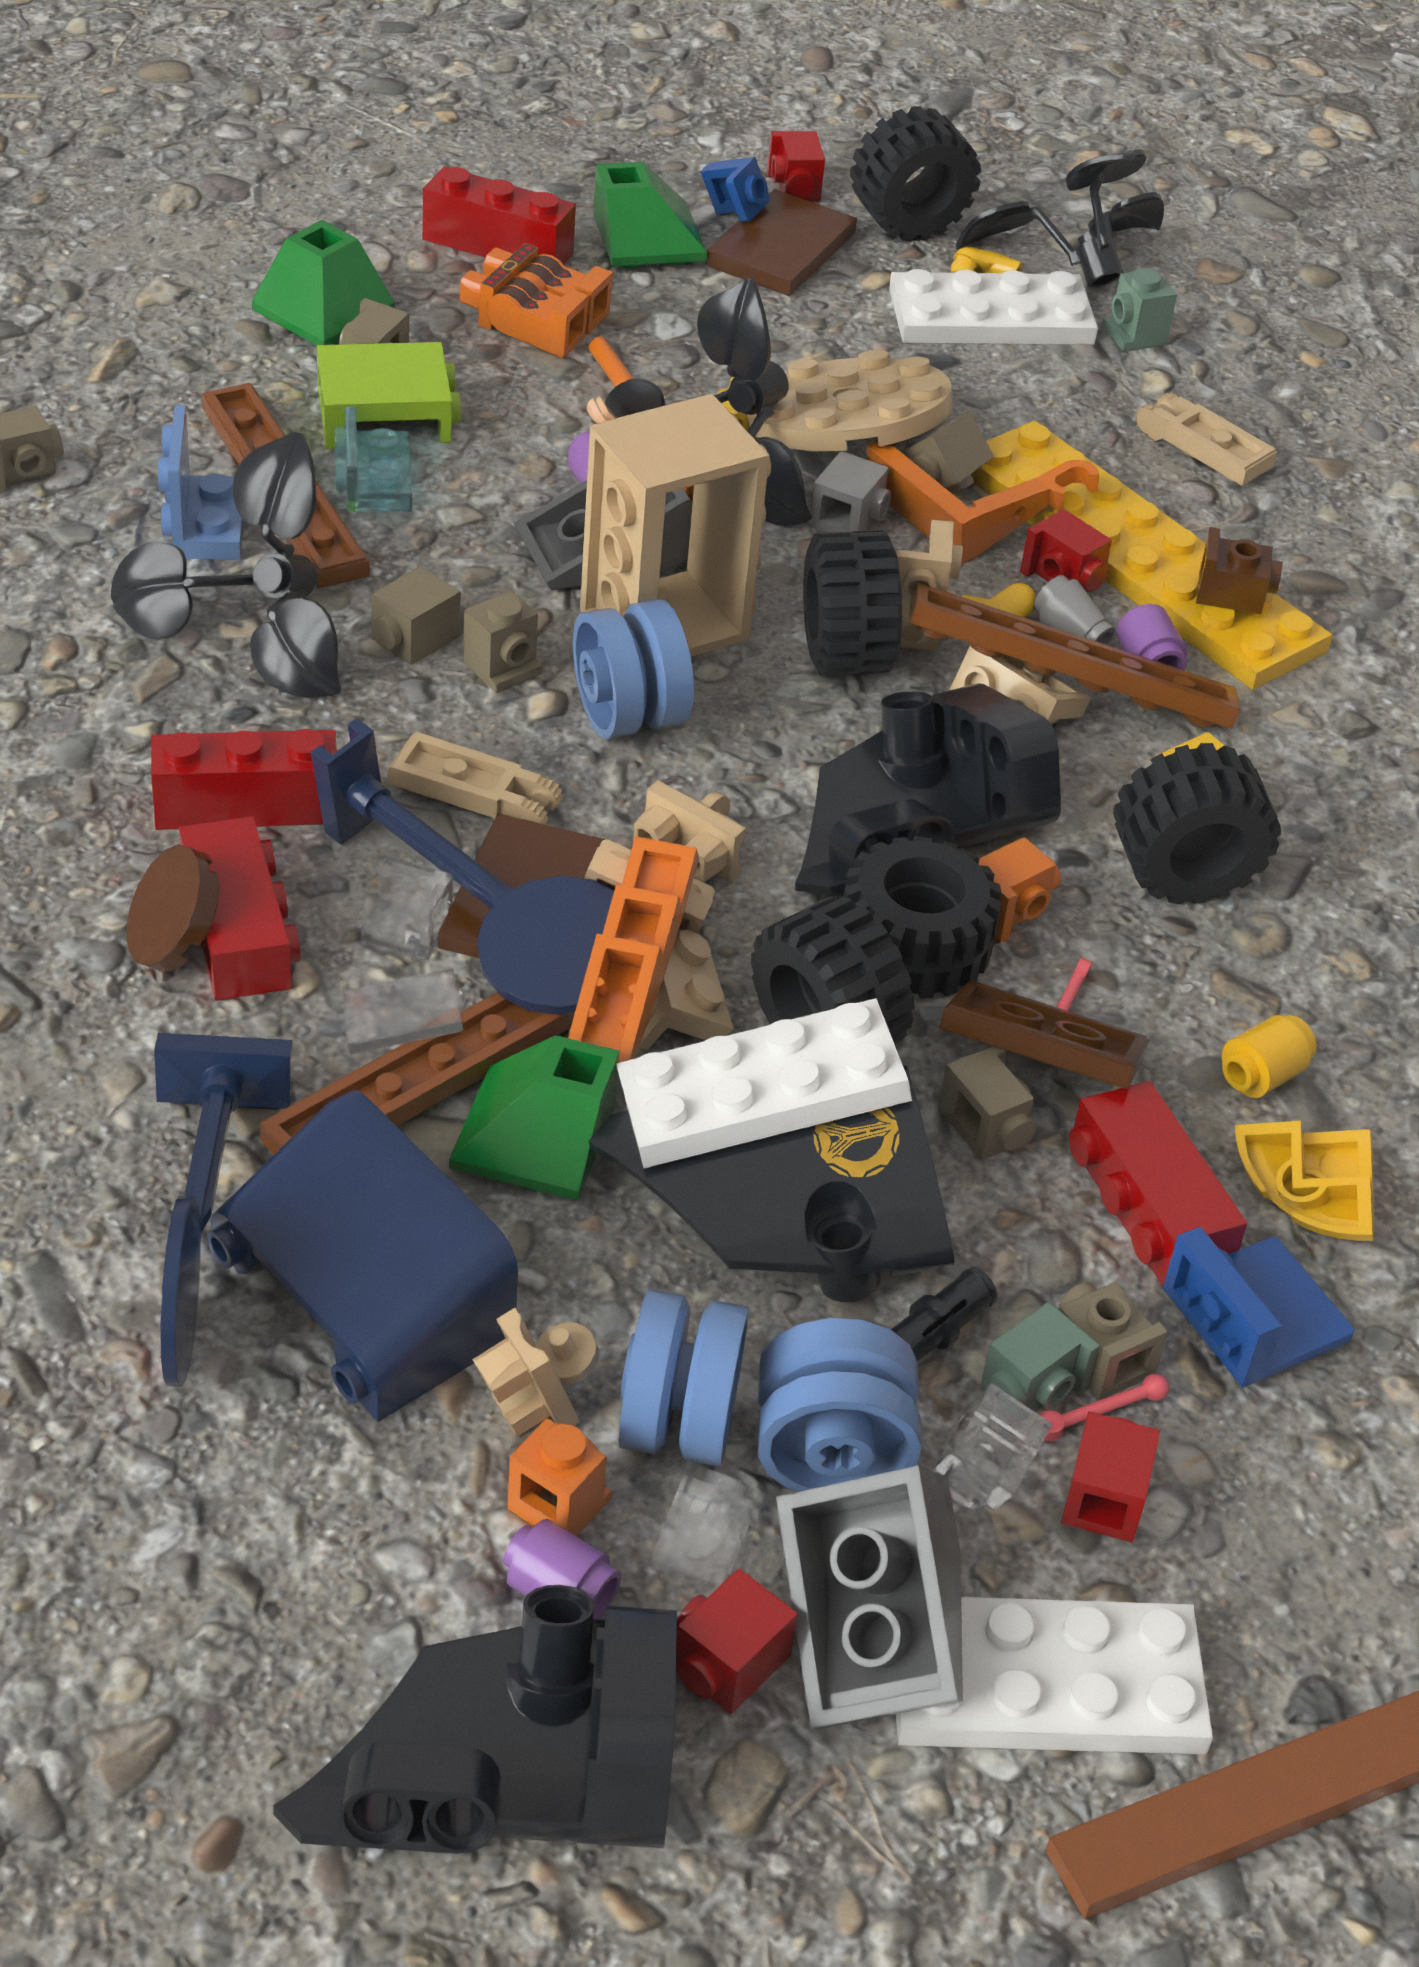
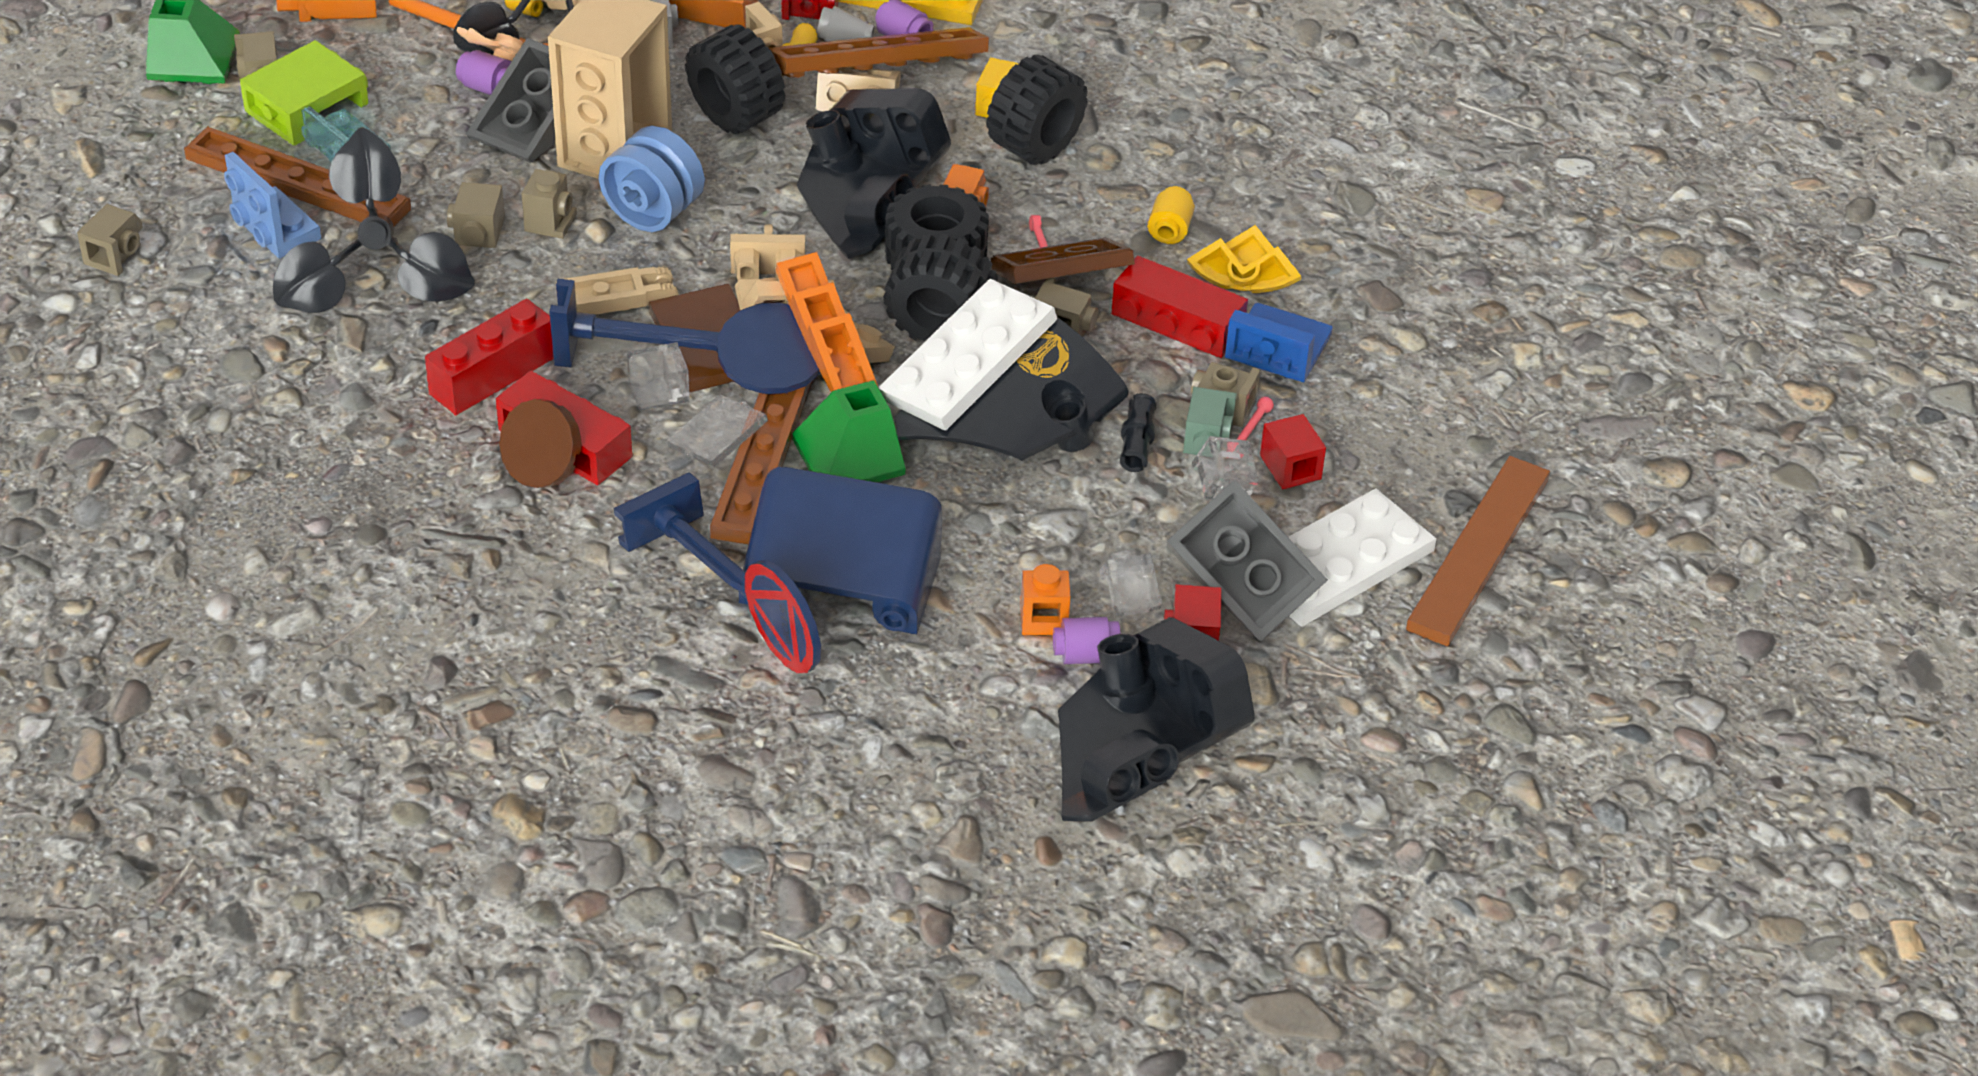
camera: 35 degrees left, 0 degrees up
(530, 1377) = (989, 557): tan hips -> none
(674, 1375) = (1064, 515): medium blue wheel -> none
(837, 1403) = (1149, 488): medium blue wheel -> none

